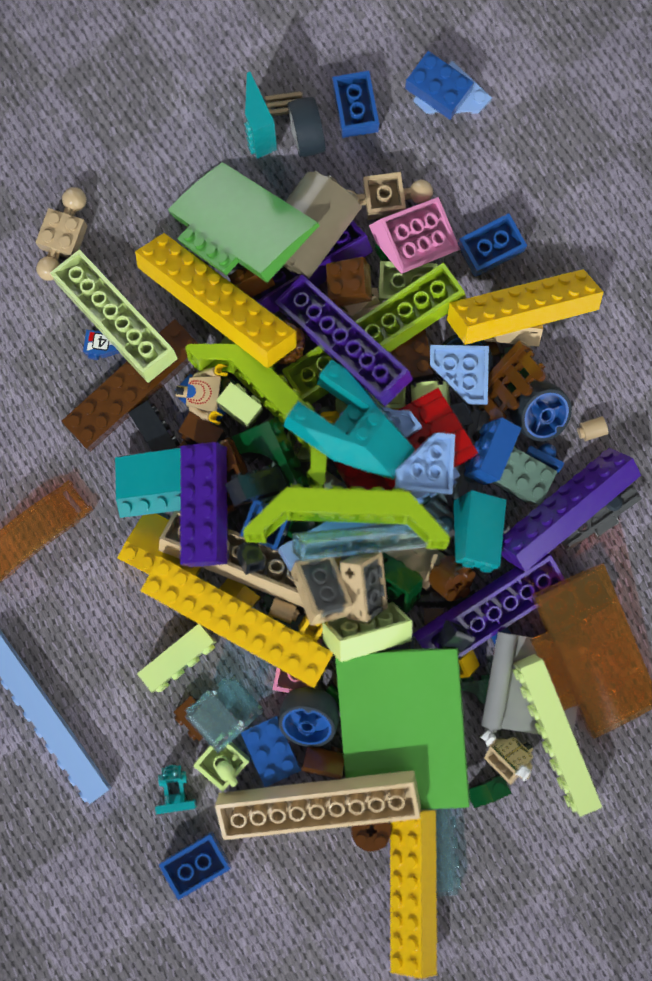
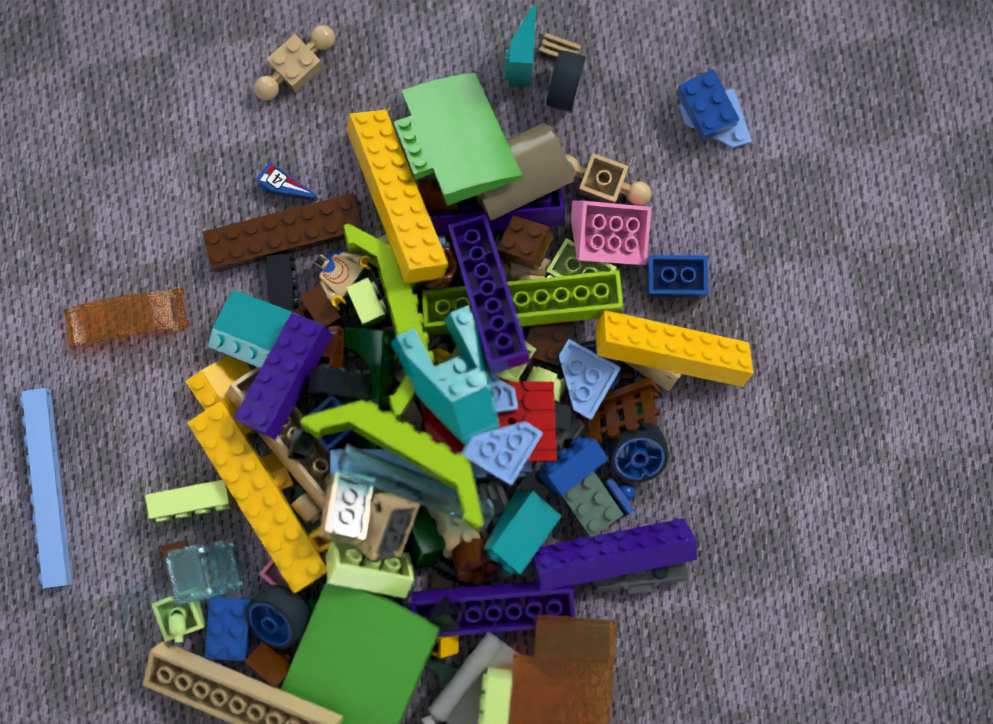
camera: 25 degrees right, 0 degrees up
(114, 316) = (299, 162): yellowish green brick -> none
(177, 801) = (119, 627): teal tile -> none
(195, 865) = (106, 694): blue brick -> none
(355, 104) = (622, 82): blue brick -> none
(592, 429) = (678, 493): tan brick -> none

